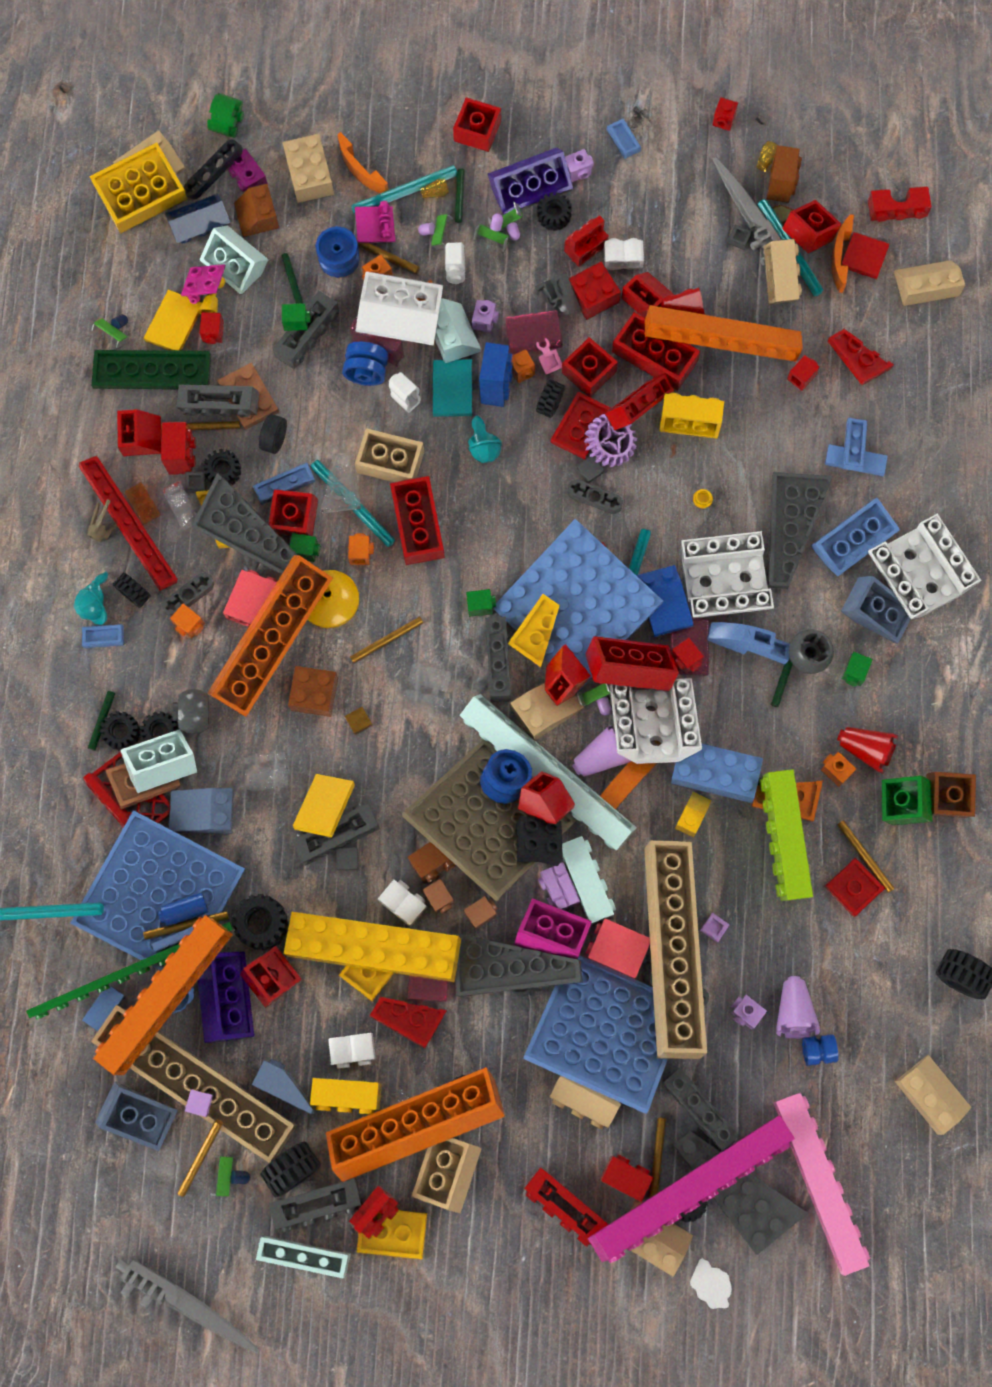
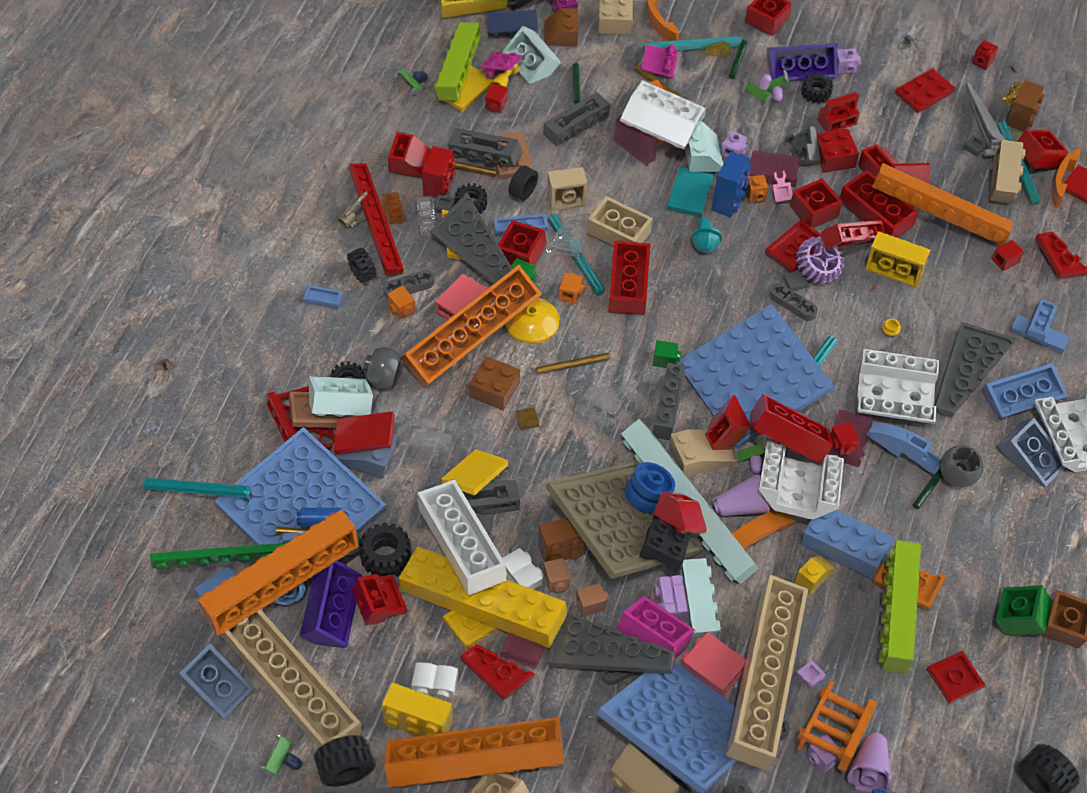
camera: 10 degrees right, 20 degrees down
(90, 601) = (322, 266): teal piece -> none
(103, 713) = (298, 359): dark green bar -> none
(111, 722) = (311, 361): black tyre -> none
(150, 369) = (432, 114): dark green plate -> none
(155, 292) = (458, 61): none -> lime brick
(198, 798) = (364, 433): none -> red tile
(198, 1103) = (278, 677): lavender tile -> none
(200, 1157) = (262, 728): pearl gold bar -> none
(280, 1083) = (356, 687): sand blue slope -> none
(295, 317) = (571, 102): green brick -> none
(321, 428) = (566, 189): none -> tan brick
(333, 896) = (462, 537): none -> white brick
(337, 252) = (621, 70): blue wheel -> none
(365, 363) = (620, 151): blue wheel -> none
(404, 392) = (648, 180): white brick -> none
(437, 230) = (710, 77): piece -> none
(455, 263) = (720, 100): white brick -> none
(535, 631) = (710, 384): yellow wing -> none
(550, 398) = (774, 216): black tyre -> none
(623, 138) = (891, 53): medium blue tile -> none
(623, 254) = (869, 132): white brick -> none
(670, 179) = (925, 90): none -> red plate
(674, 611) = (842, 400): blue slope -> none
(774, 976) = (857, 726): none -> orange fence
(837, 768) = (963, 571): orange brick -> none
(856, 669) = (1001, 494): green brick -> none
(865, 856) = (972, 653): pearl gold bar -> none
(869, 746) = (999, 559): red cone -> none

